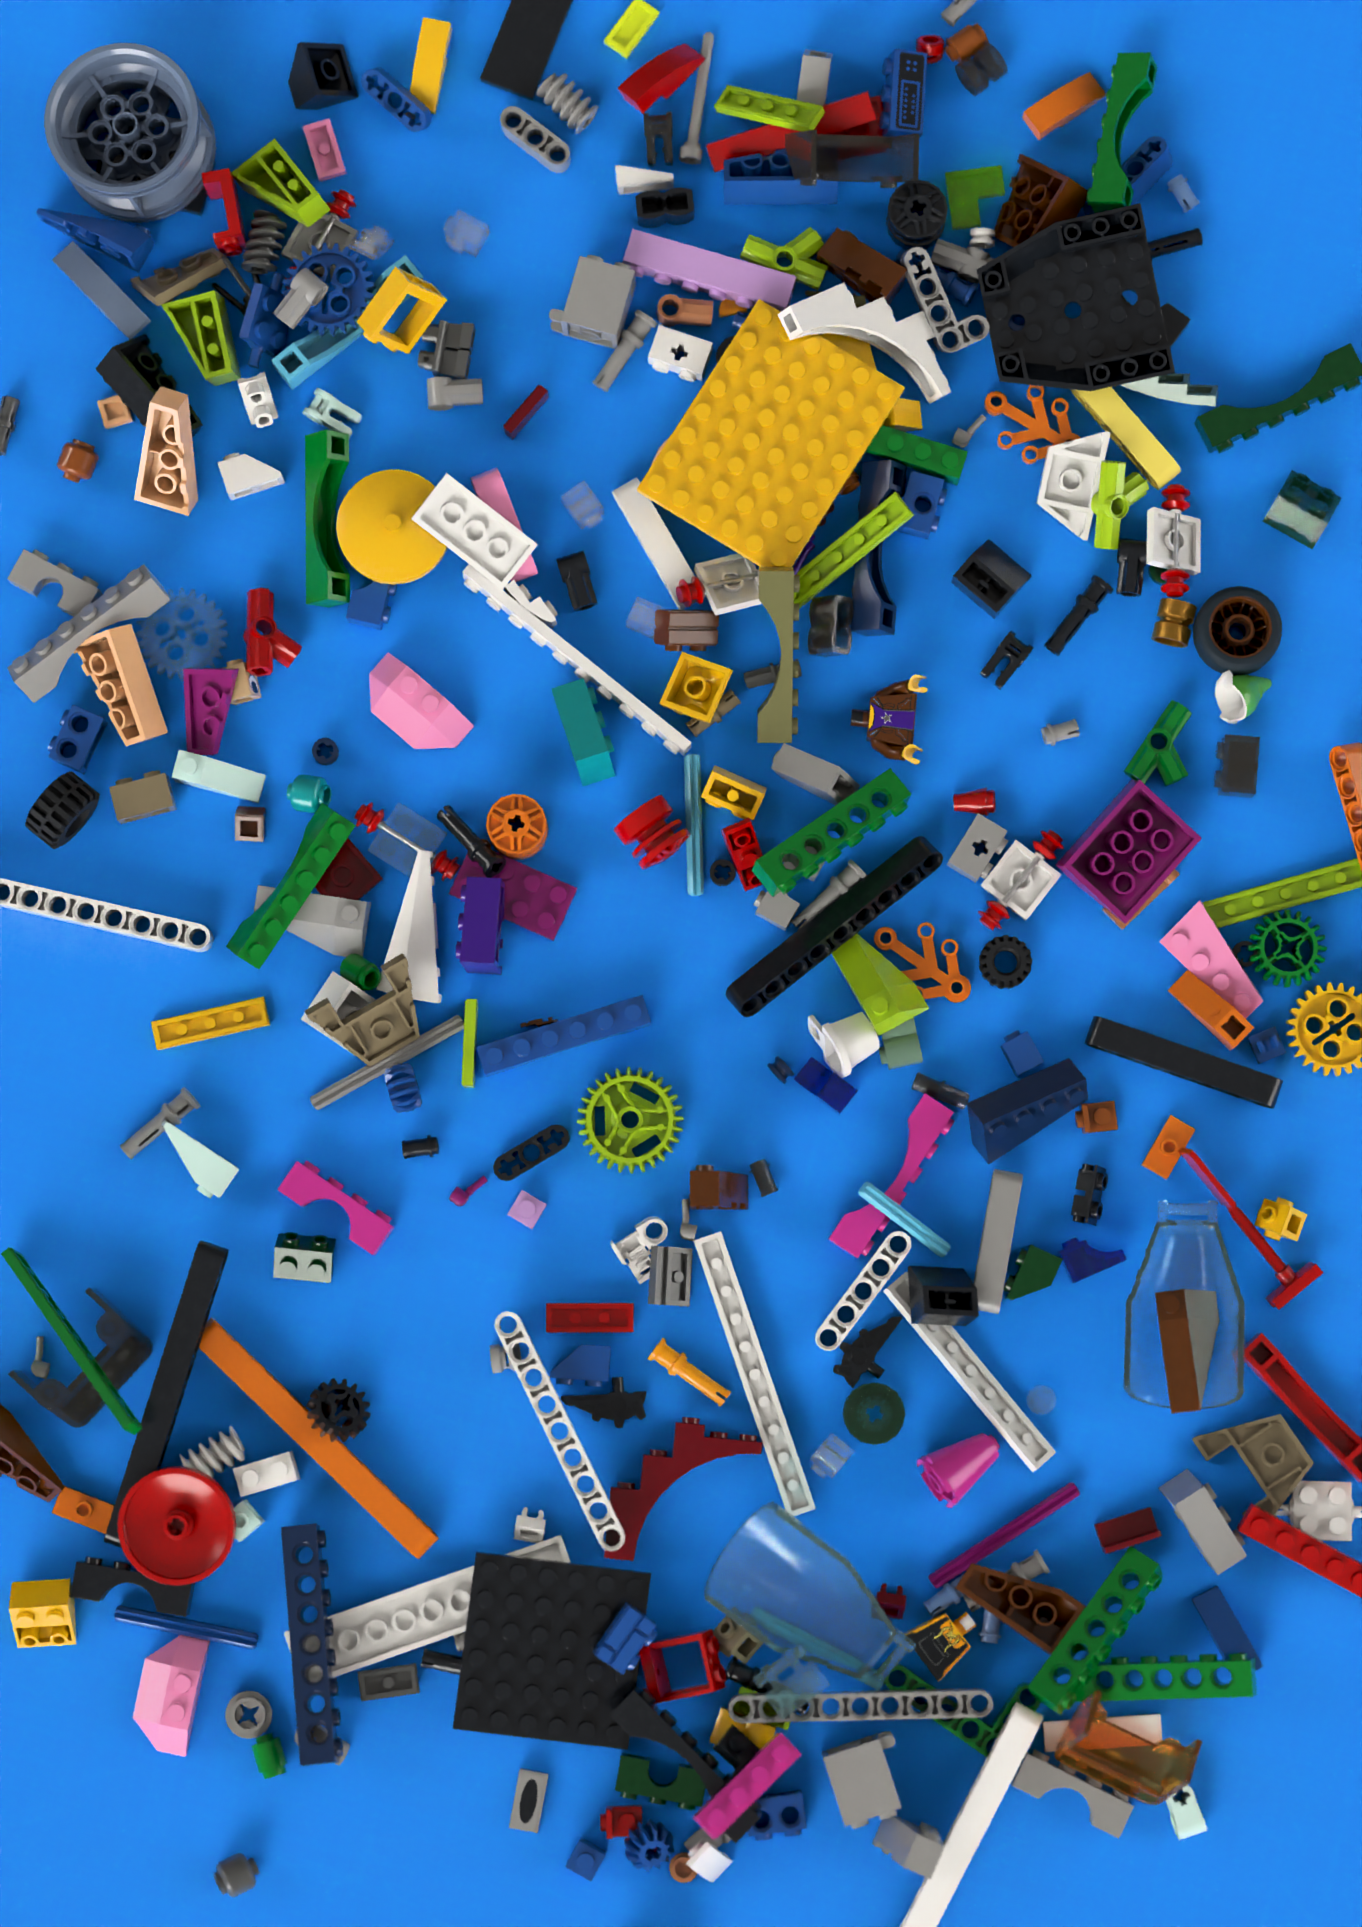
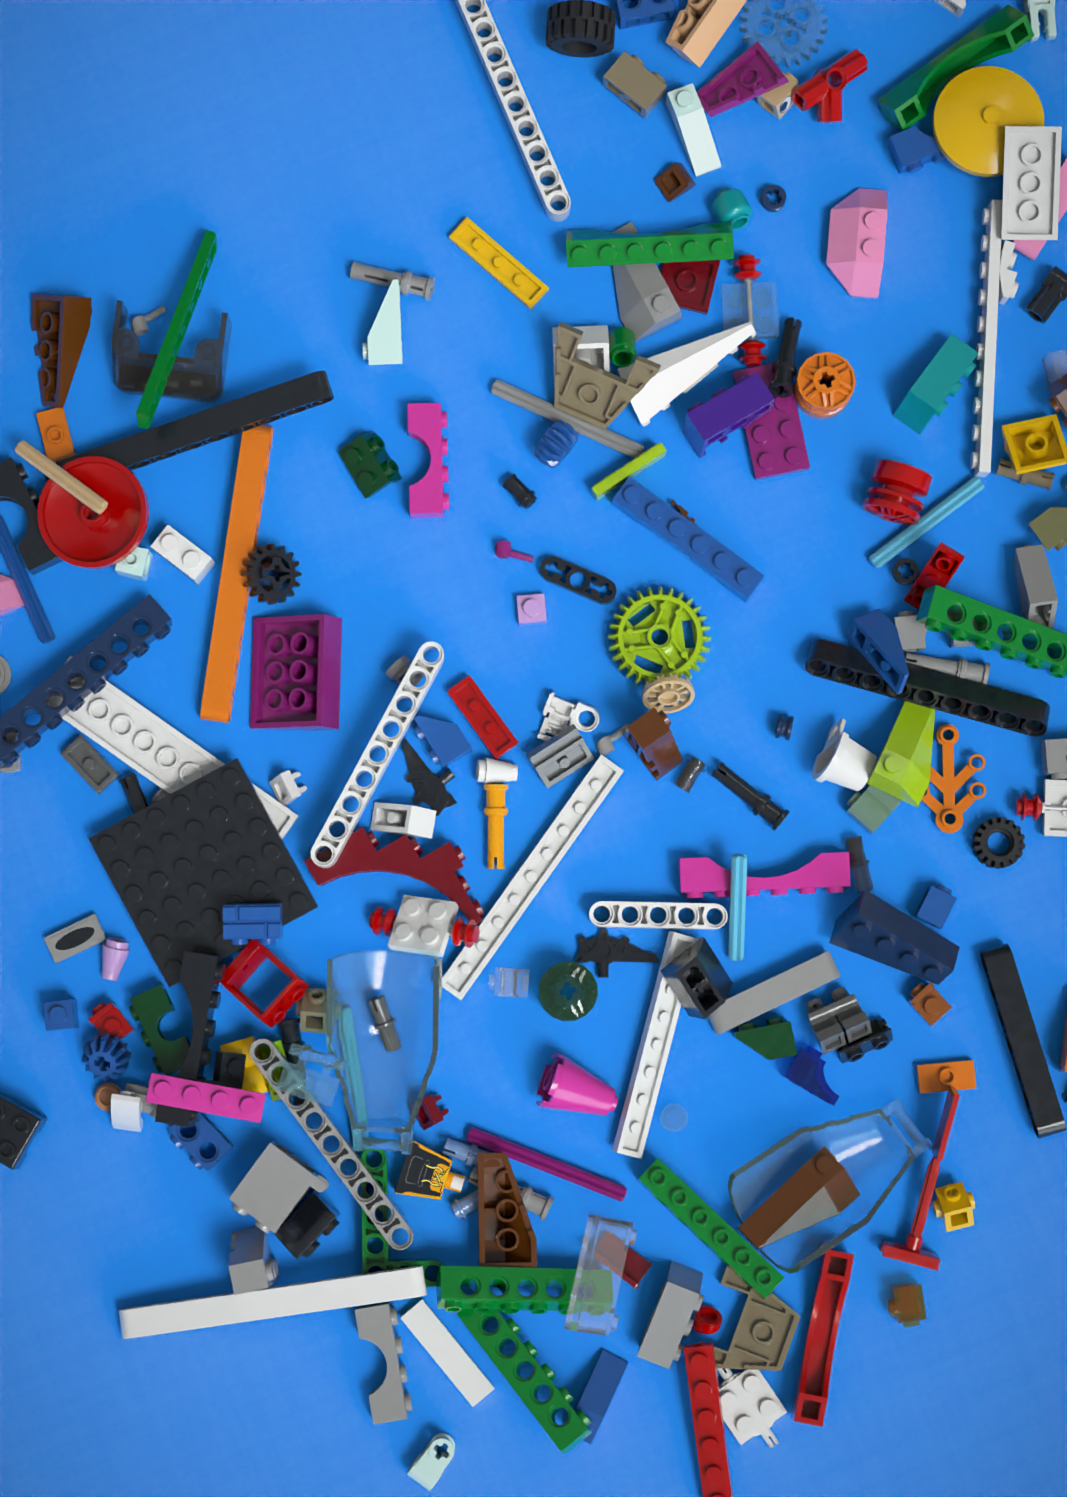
camera: 50 degrees right, 0 degrees up
(127, 1531) = (61, 477): none -> tan axle
(216, 1454) = (170, 506): white piece -> none
(437, 1449) = (296, 672): none -> magenta slope
(568, 1778) = (113, 957): none -> lavender cone
(628, 1448) = (403, 820): none -> white slope
(643, 1340) = (495, 771): none -> white cone
(682, 1146) = (668, 692): none -> tan wheel
(732, 1495) = (424, 926): none -> white plate
(733, 793) = (974, 533): yellow brick -> none
(769, 940) = (880, 645): none -> blue slope
(789, 1587) = (384, 1023): none -> dark grey axle
(825, 1085) = (797, 771): clear blue arch -> none
(832, 1136) = (761, 804): none -> black pin
(912, 1774) = (307, 1225): none -> black slope
(1053, 1193) = (837, 1019): none -> dark grey hips
(1123, 1758) = (439, 1382): clear orange windscreen -> none
(1128, 1557) = (599, 1274): none -> clear windscreen
(1156, 1436) = (710, 1229): none -> green brick
(1229, 1494) = (707, 1320): none -> red tile
(1333, 1317) = (907, 1304): none -> clear orange brick

